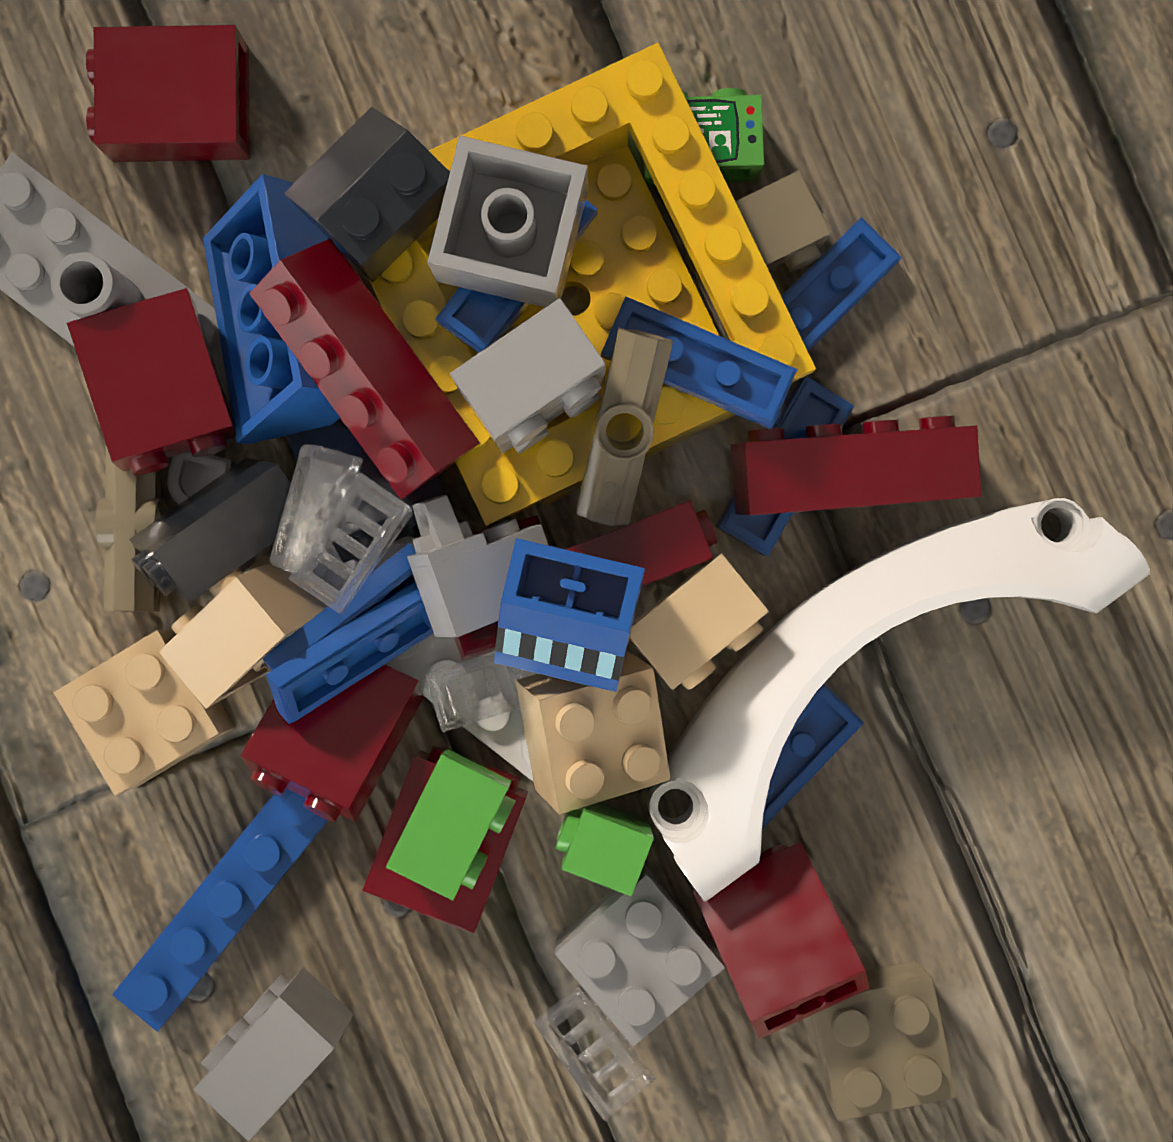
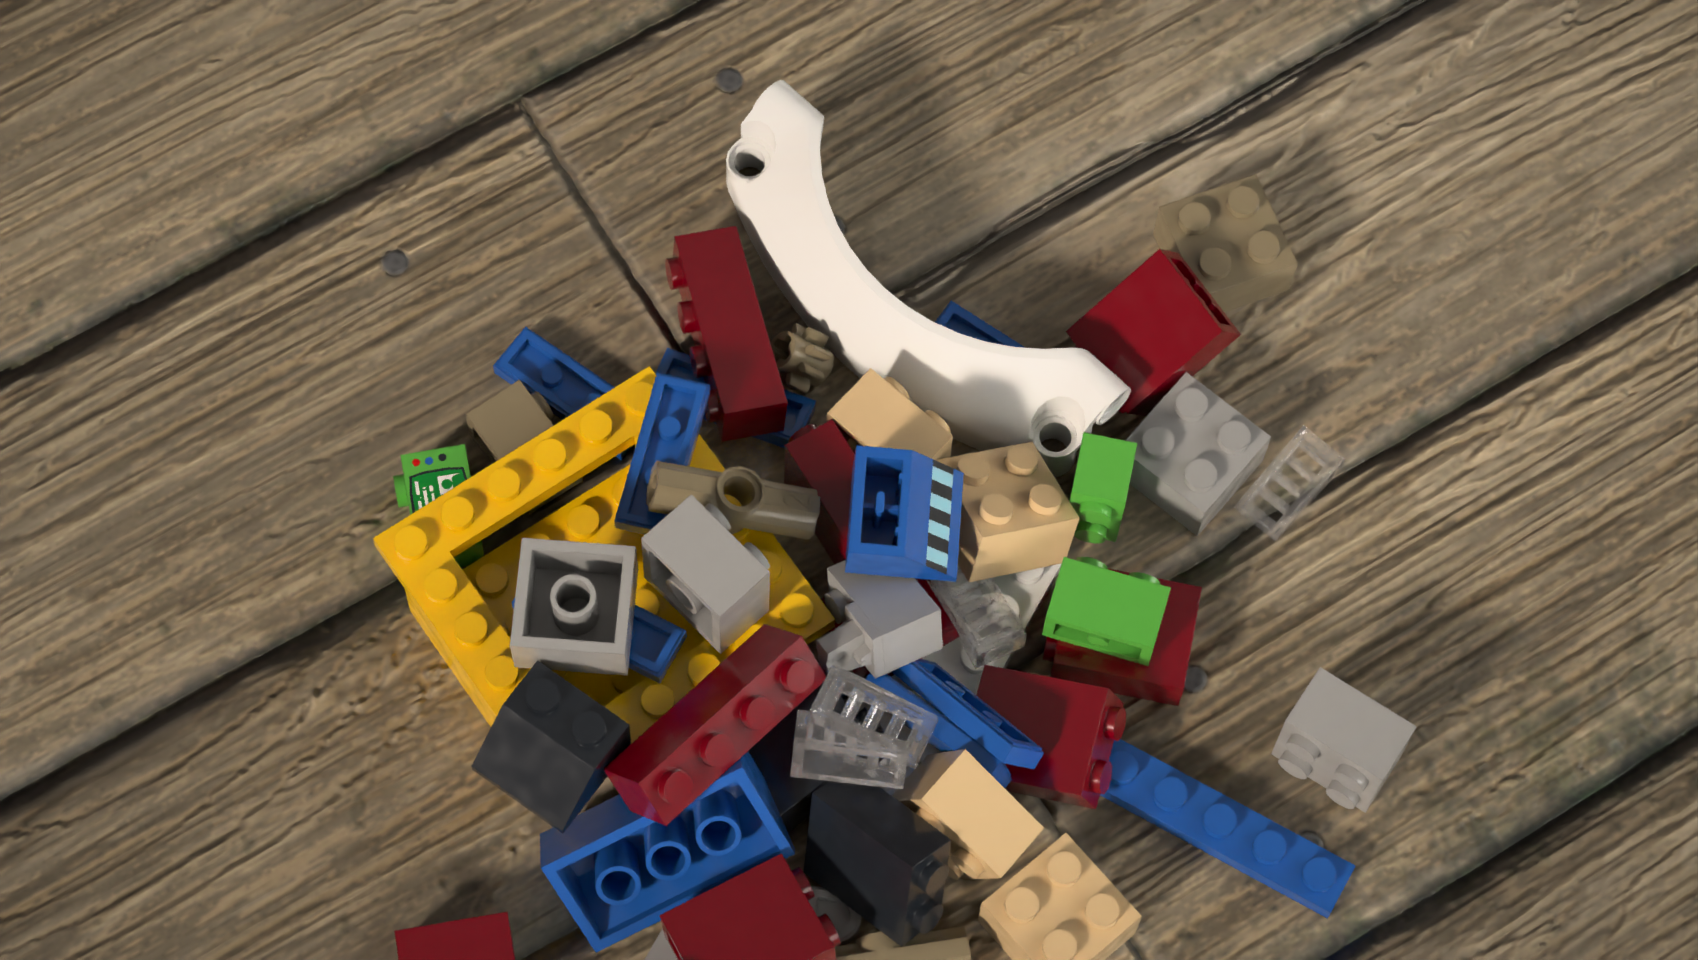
camera: 100 degrees left, 20 degrees down
(816, 545) = (802, 357): none -> dark tan gear

